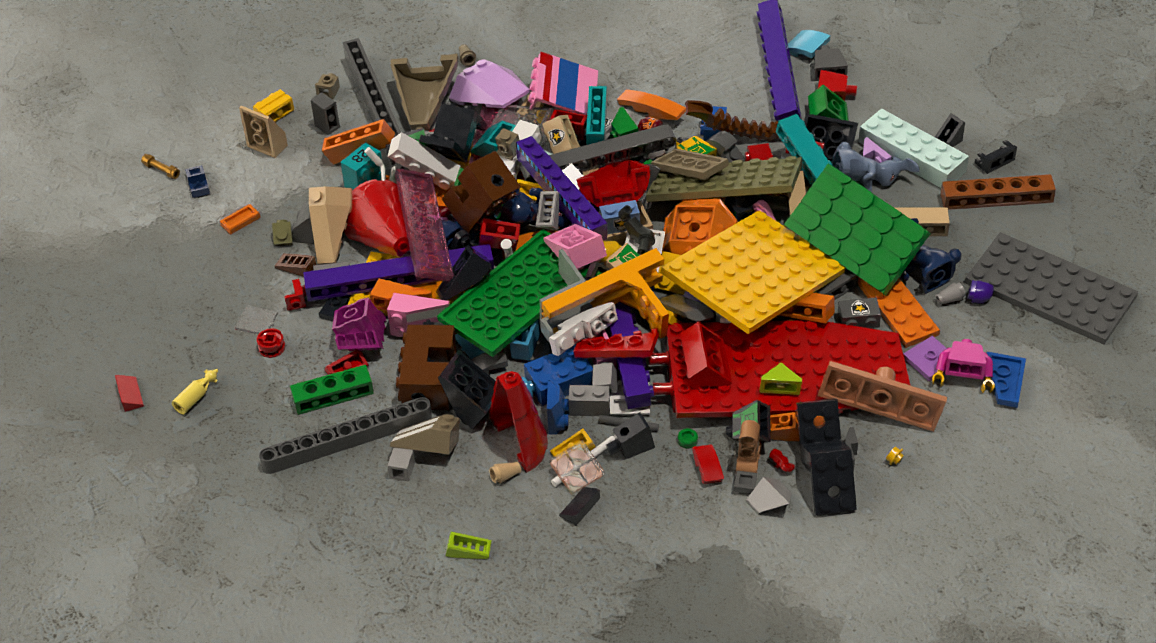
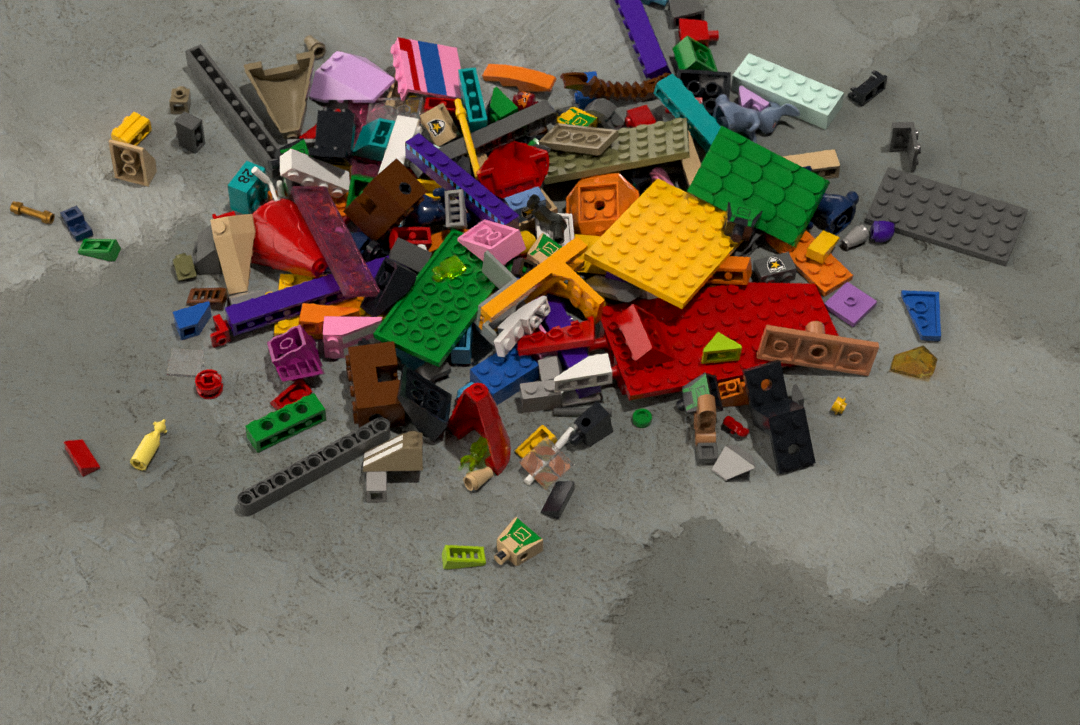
camera: 15 degrees left, 5 degrees up
(212, 206) = (100, 248): none -> green slope
(240, 219) = (134, 258): orange tile -> none
(274, 281) = (192, 320): none -> blue slope
(331, 305) = (260, 337): black plate -> none
(343, 144) = (229, 161): orange brick -> none
(492, 246) = (409, 254): none -> dark grey slope
(506, 143) = (394, 143): dark tan brick -> none
(509, 448) = (477, 450): none -> clear neon green plate
(525, 542) = (517, 544): none -> tan torso
(528, 264) = (450, 267): none -> clear neon green plate
(556, 408) = (511, 408): blue slope -> none
(581, 127) = (461, 115): none -> yellow bar
(636, 383) = (587, 373): none -> white slope
(708, 464) = (669, 440): red slope -> none
(832, 260) = (741, 222): none -> black torso
(912, 297) = (822, 246): none -> yellow slope
(951, 131) = (820, 67): black slope -> none
(965, 360) = (885, 303): dark pink torso -> none
(985, 425) = (914, 362): none -> clear yellow slope
(998, 192) = (874, 125): dark orange brick -> none
(1020, 208) = (904, 138): none -> dark grey bracket

